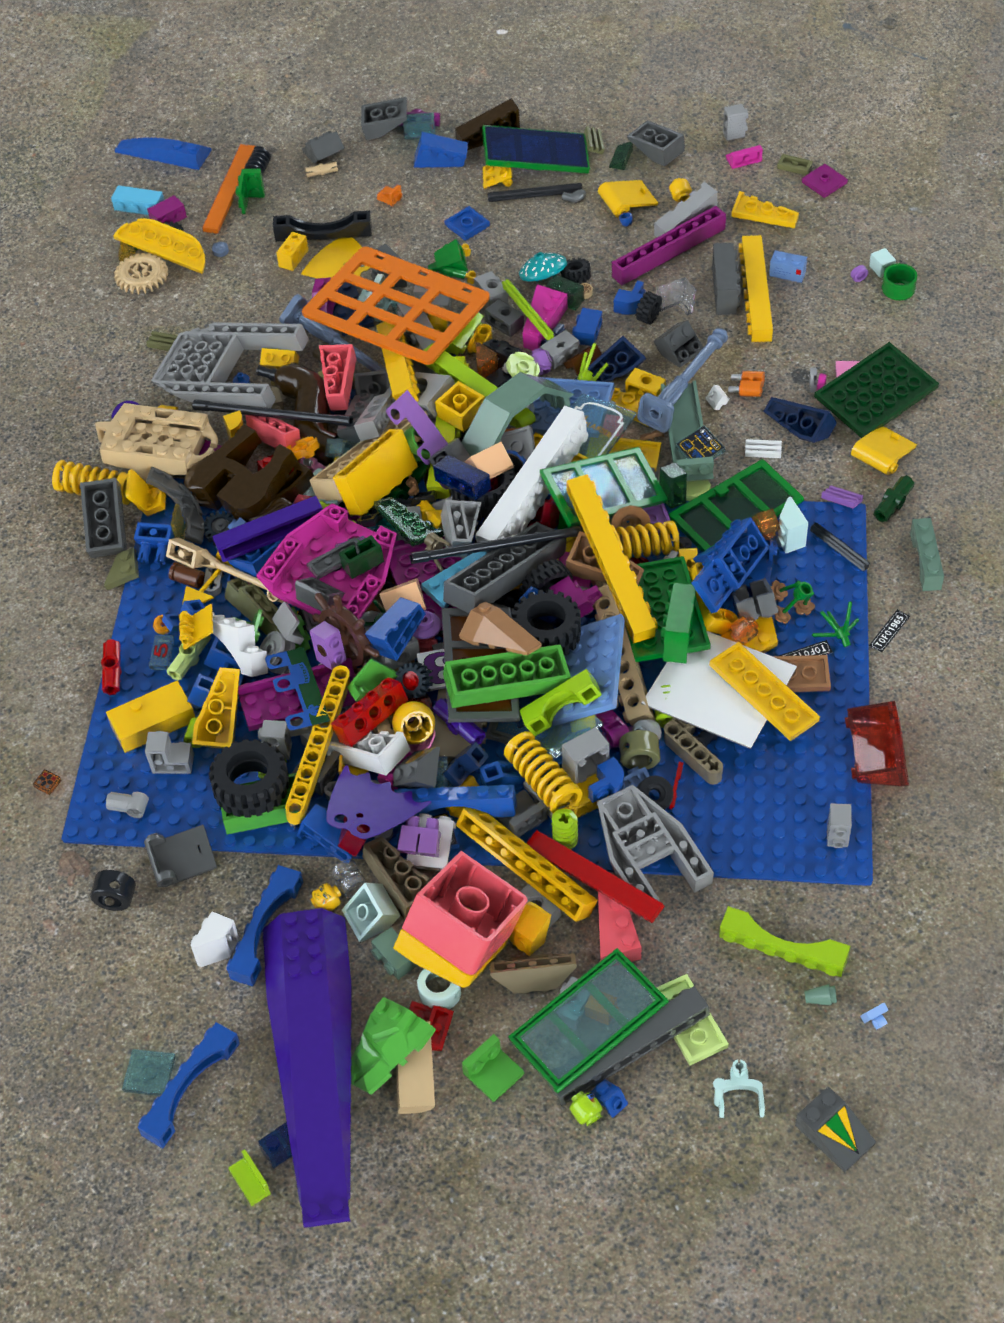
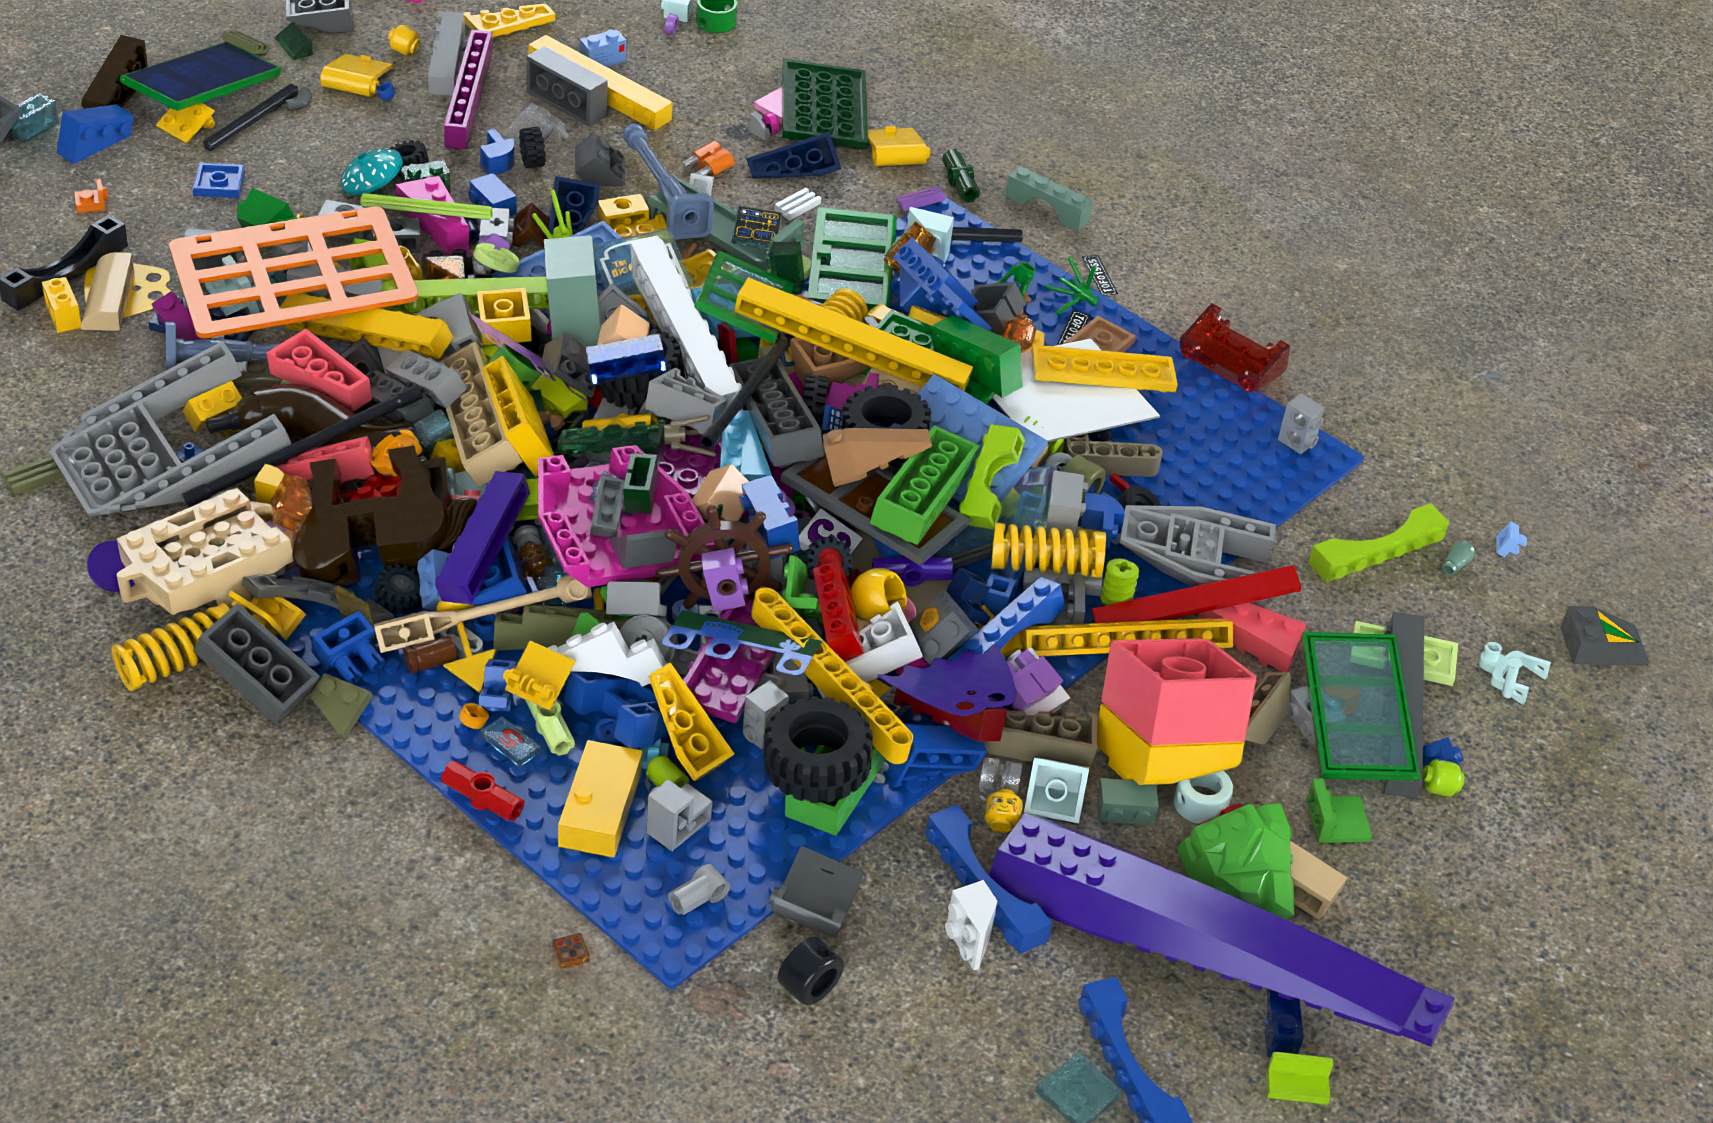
camera: 60 degrees left, 10 degrees down
(212, 440) = (291, 502): none -> clear orange brick
(324, 259) = (109, 292): none -> tan brick

